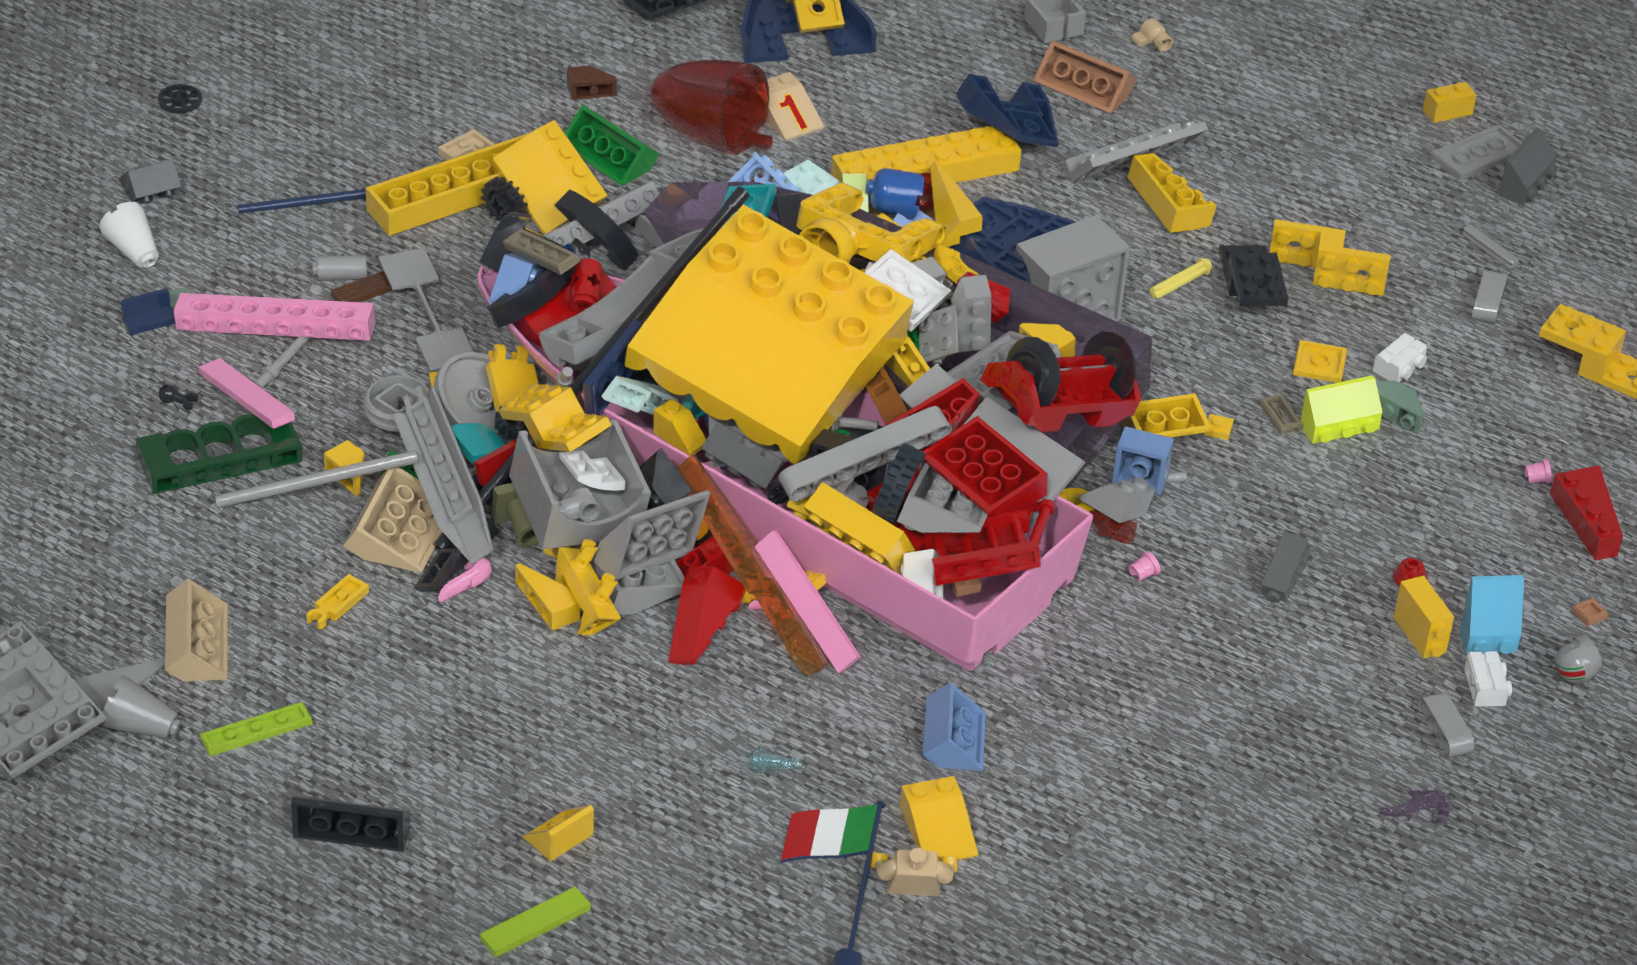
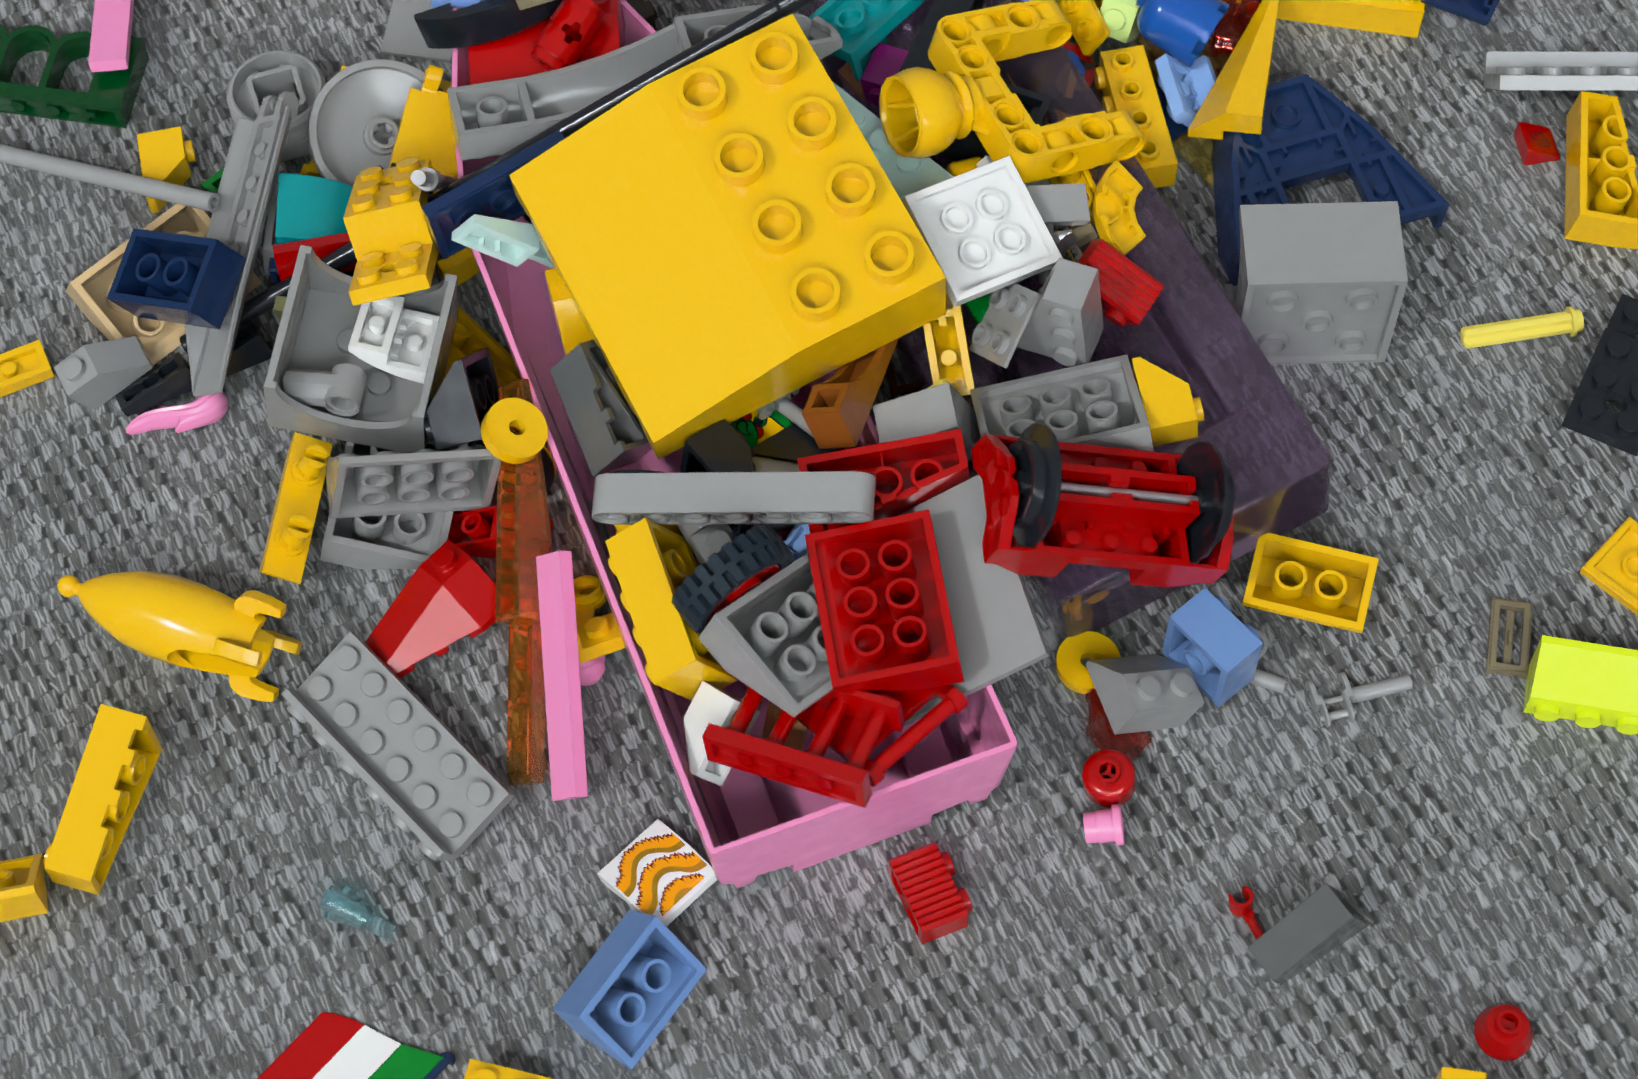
camera: 35 degrees right, 20 degrees up
(404, 572) = (102, 370): none -> light grey slope
(427, 498) = (176, 278): none -> dark blue brick
(549, 597) = (253, 494): yellow slope -> none
(568, 662) = (187, 624): none -> yellow piece
(586, 759) = (102, 799): none -> yellow wedge
(709, 478) = (505, 444): none -> yellow piece
(735, 677) = (398, 749): none -> light grey bracket
(922, 676) = (658, 873): none -> slope
(1077, 629) = (930, 892): none -> red brick
(1120, 196) = (1535, 144): none -> red slope
(1131, 543) = (1115, 789): none -> red head
(1220, 426) = (1397, 619): yellow plate -> none
(1222, 467) = (1354, 695): none -> light grey piece
(1240, 576) = (1245, 911): none -> red hand

